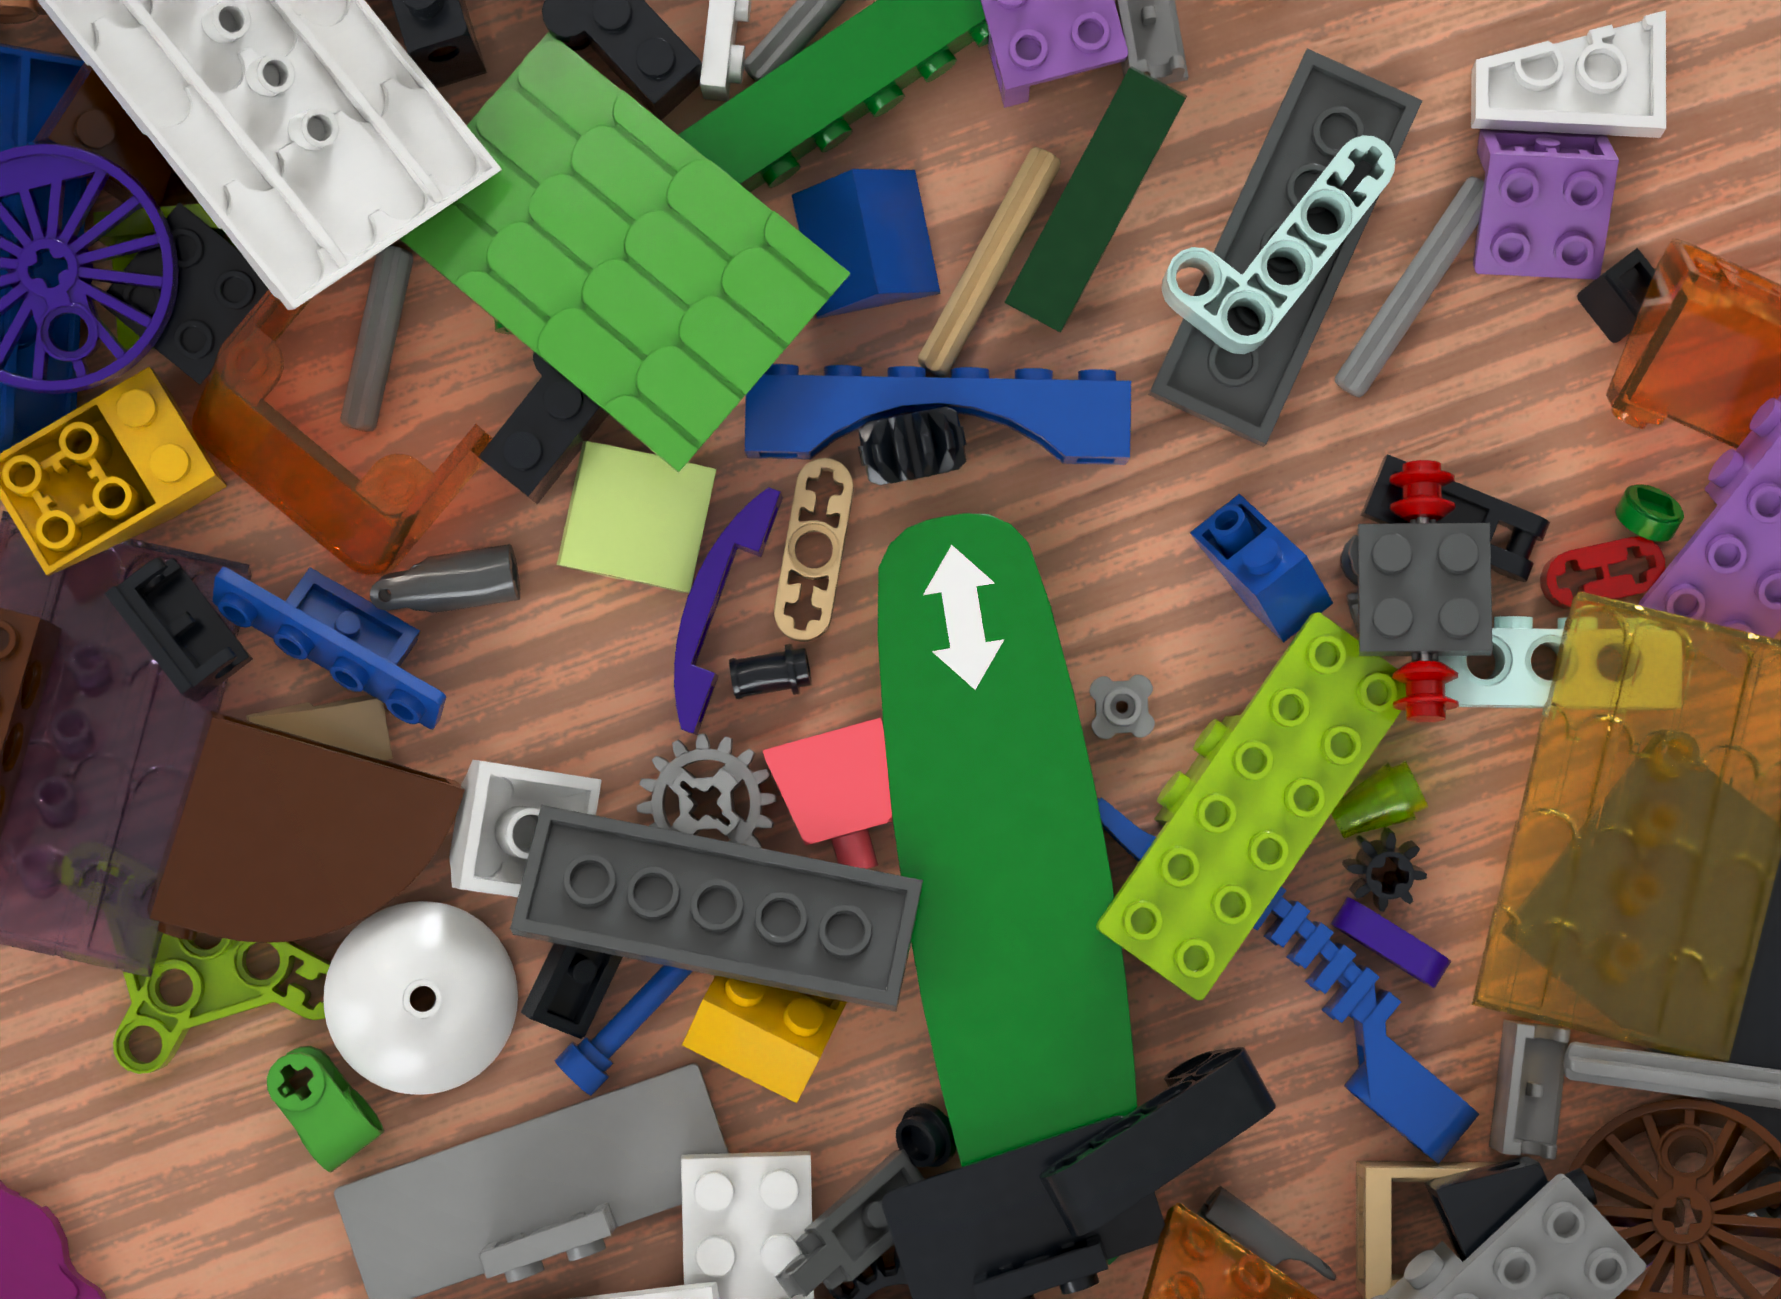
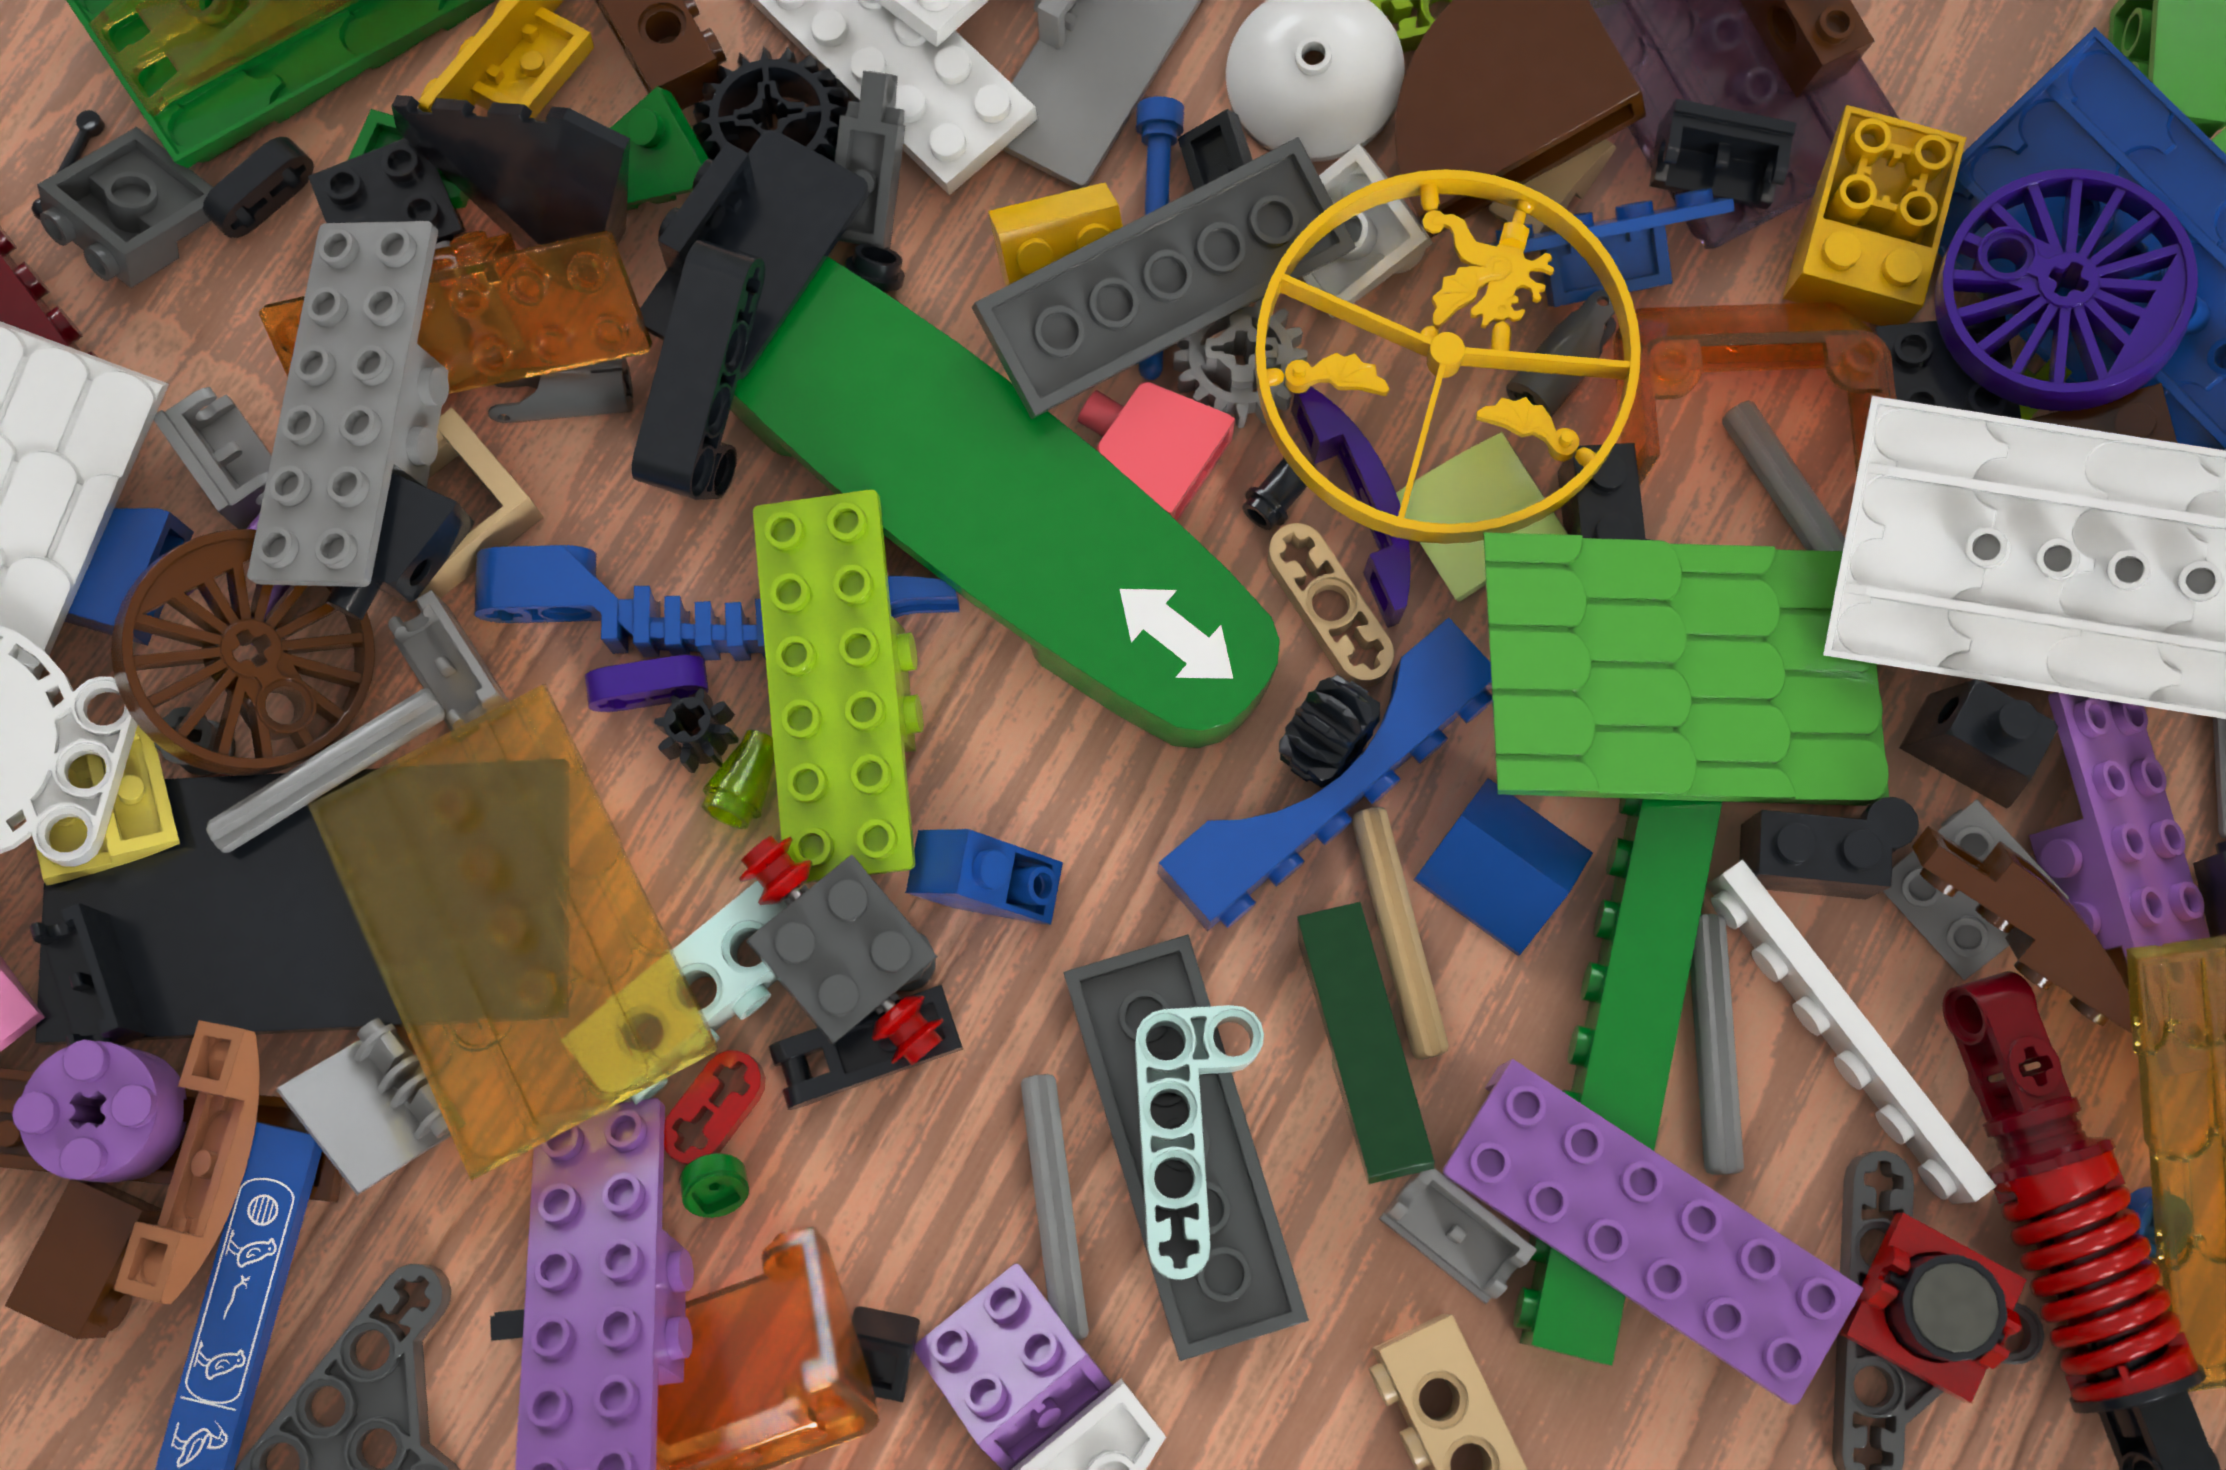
camera: 135 degrees right, 10 degrees down
(456, 670) = (1504, 272): none -> yellow piece
(1108, 719) = (1001, 703): light grey plate -> none

